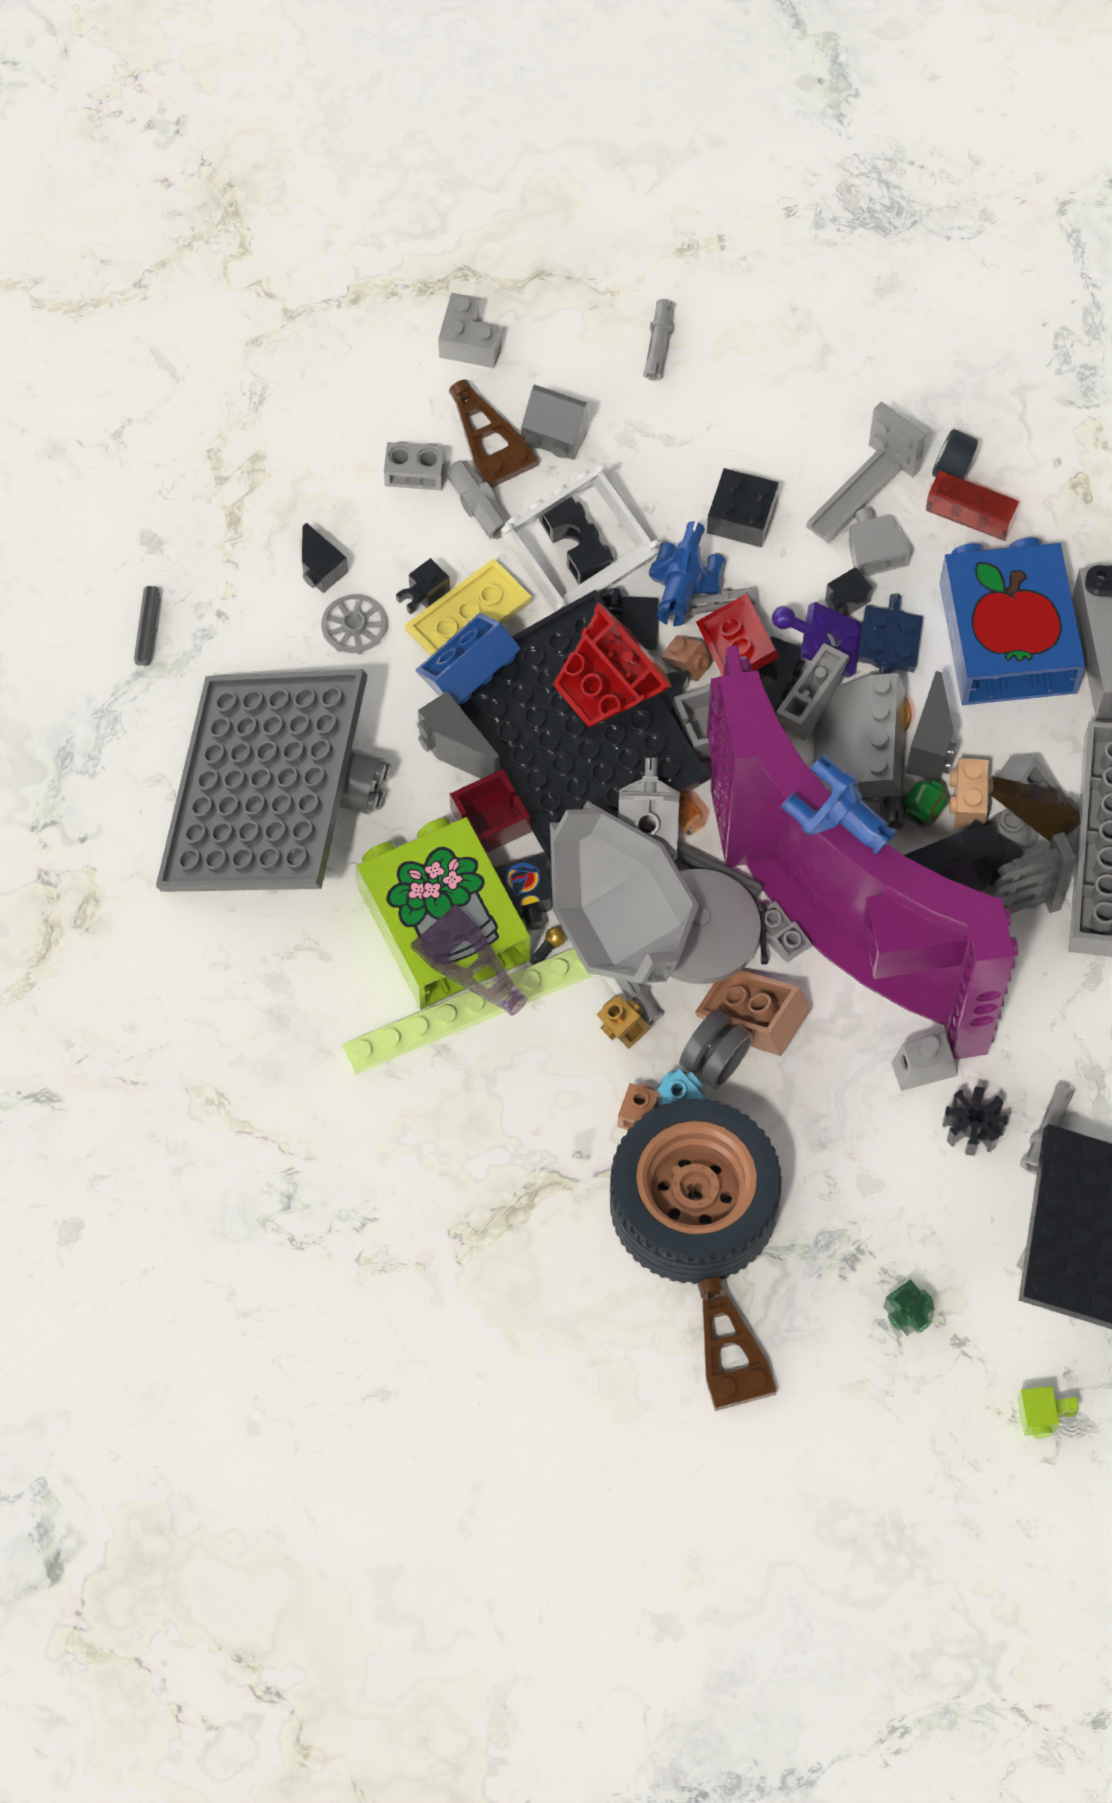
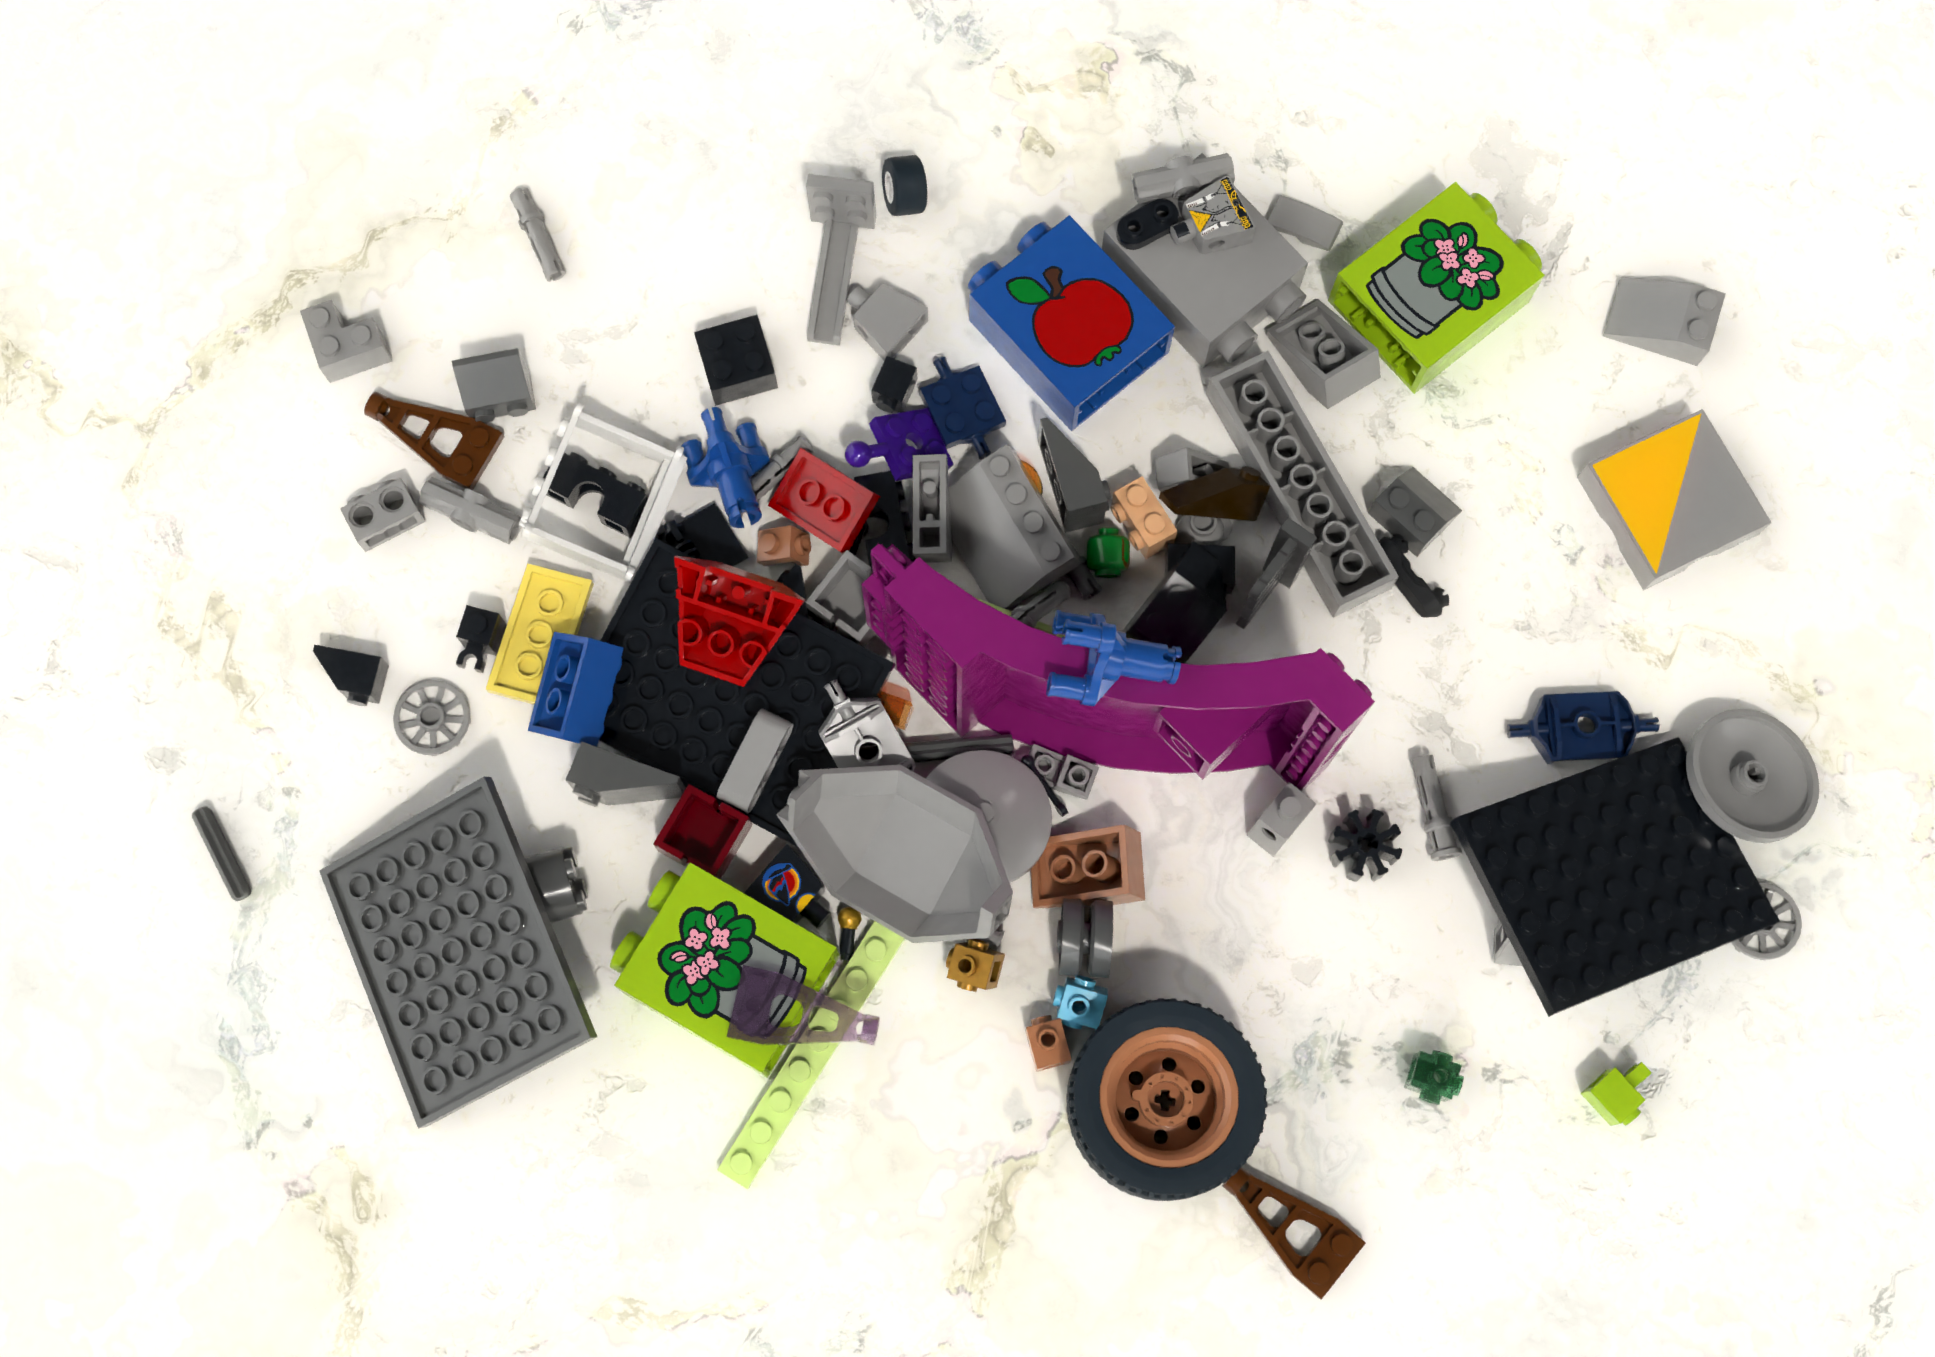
camera: 35 degrees left, 10 degrees up
(561, 782) = (755, 760): none -> light grey beam
(972, 505) = (952, 224): clear red brick -> none

